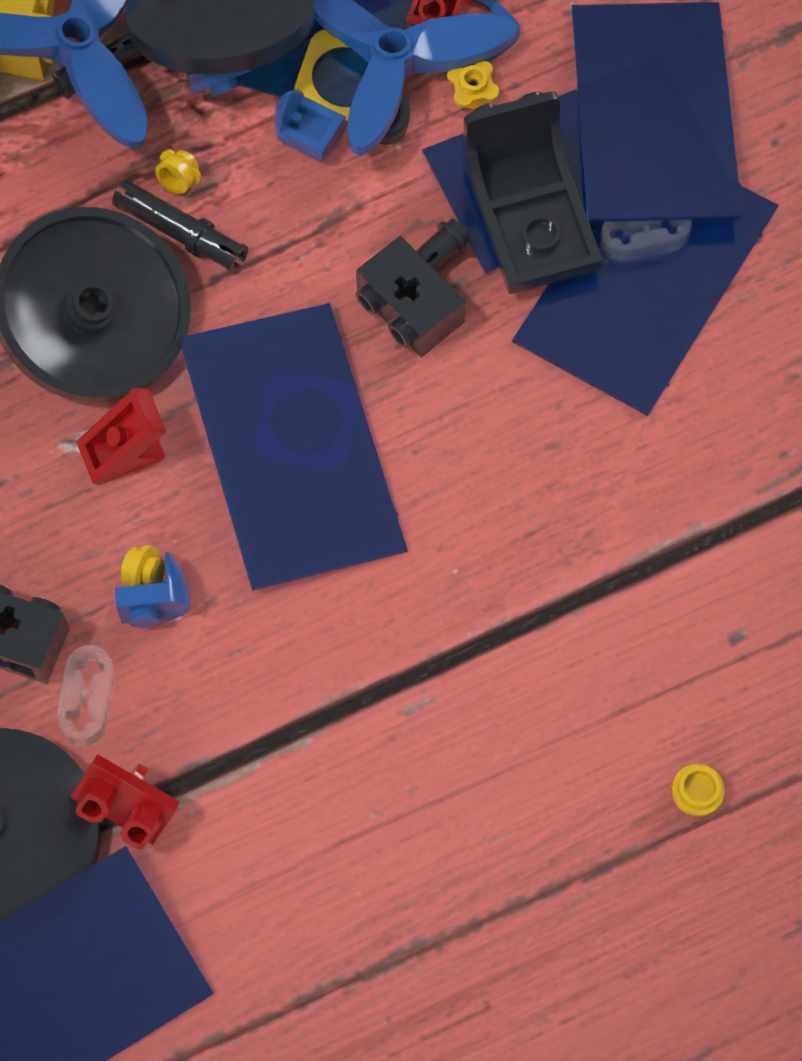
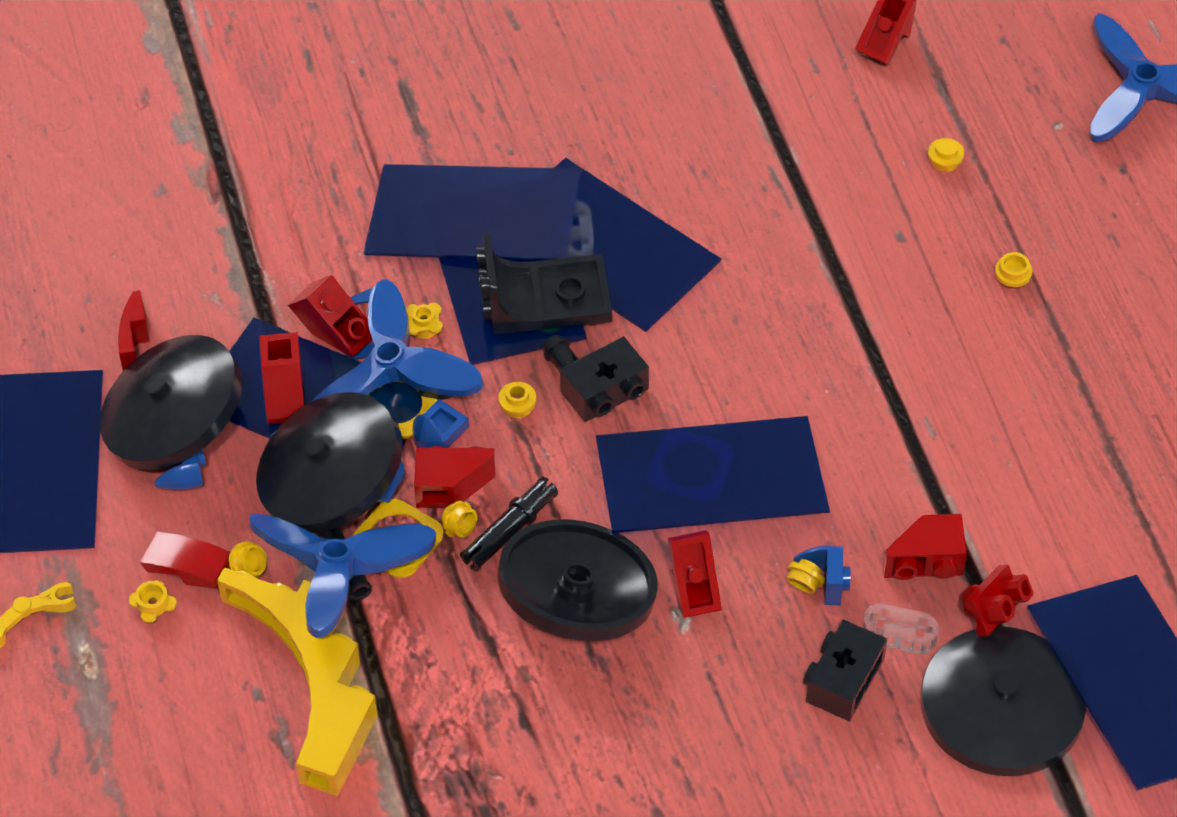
camera: 80 degrees left, 15 degrees down
(197, 110) = (399, 507): none -> yellow piece
(206, 715) = (928, 548): none -> red slope
(233, 147) = (451, 474): none -> red slope
(368, 218) = (517, 407): none -> yellow plate

